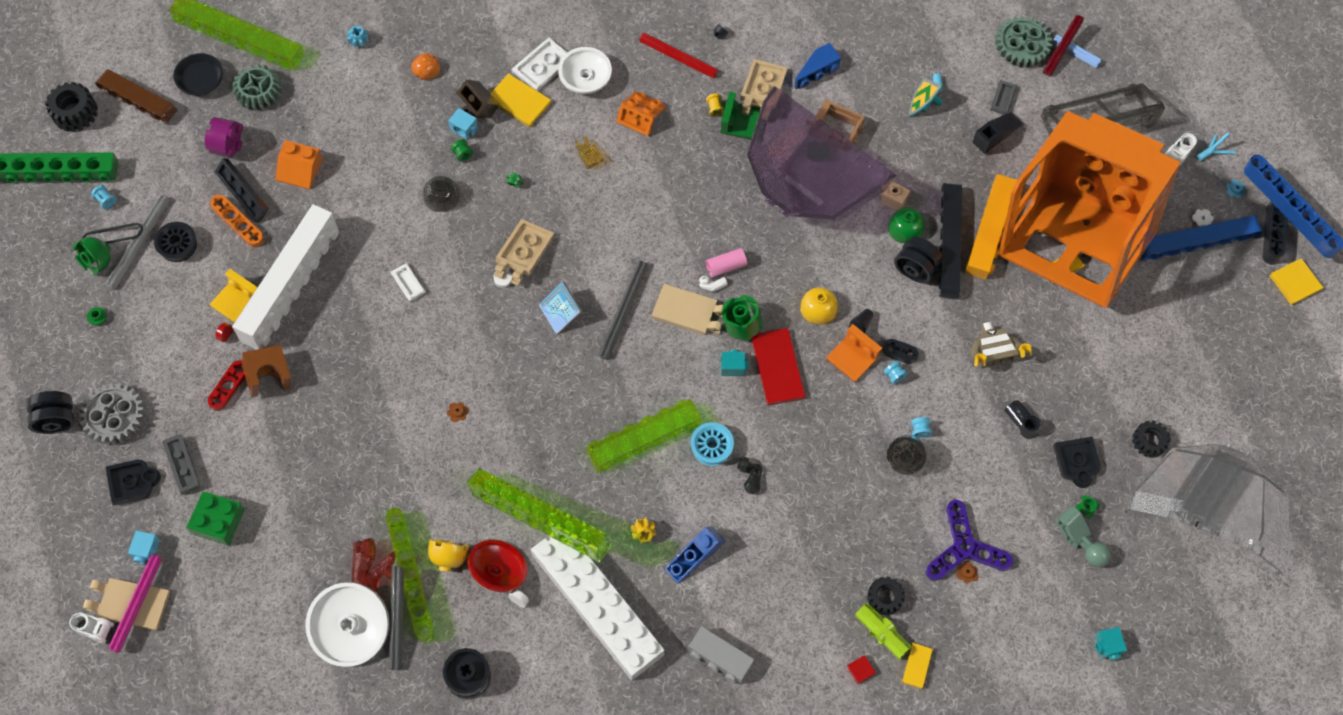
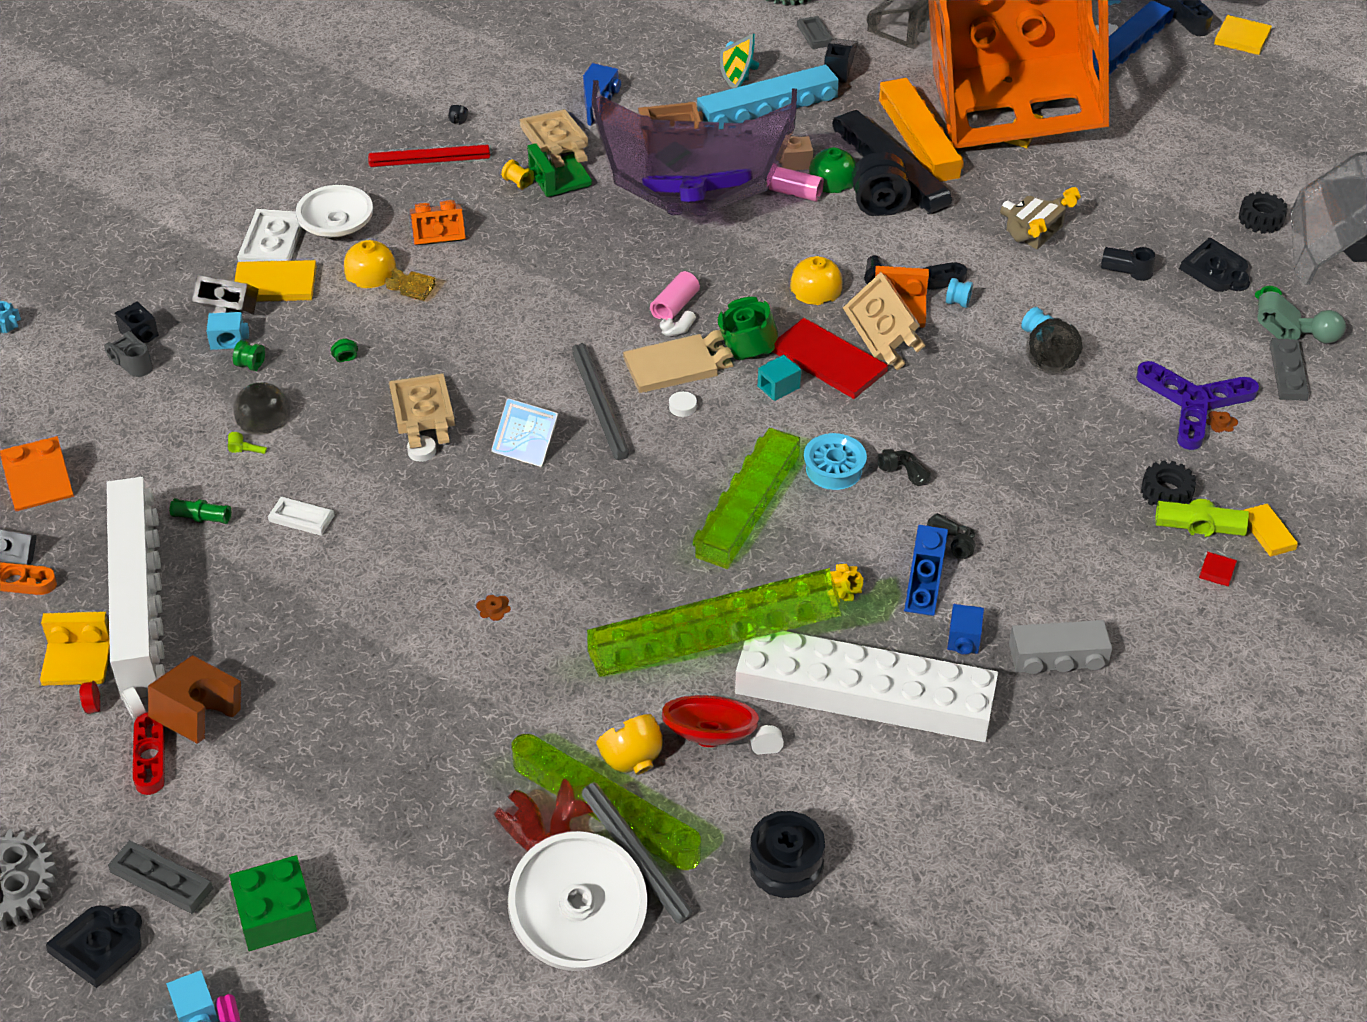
camera: 35 degrees left, 20 degrees down
(240, 346) = (133, 702): none -> white tile
(360, 245) = (200, 511): none -> green pin
(403, 108) = (130, 355): none -> dark grey piece
(412, 207) = (236, 444): none -> lime hand
(418, 82) = (138, 321): none -> black brick
(425, 66) = (118, 299): orange hair -> none
(577, 123) = (368, 264): none -> yellow cylinder
(666, 343) = (682, 404): none -> white tile
(680, 607) = (965, 629): none -> blue brick
(733, 530) = (962, 544): none -> pearl dark grey piece
(795, 191) = (695, 187): none -> dark purple piece
(827, 365) = (883, 320): none -> tan tile
(874, 221) = (797, 184): none -> bright pink pin
(919, 138) = (766, 96): none -> medium azure brick
(1046, 565) = (1289, 369): none -> dark grey plate

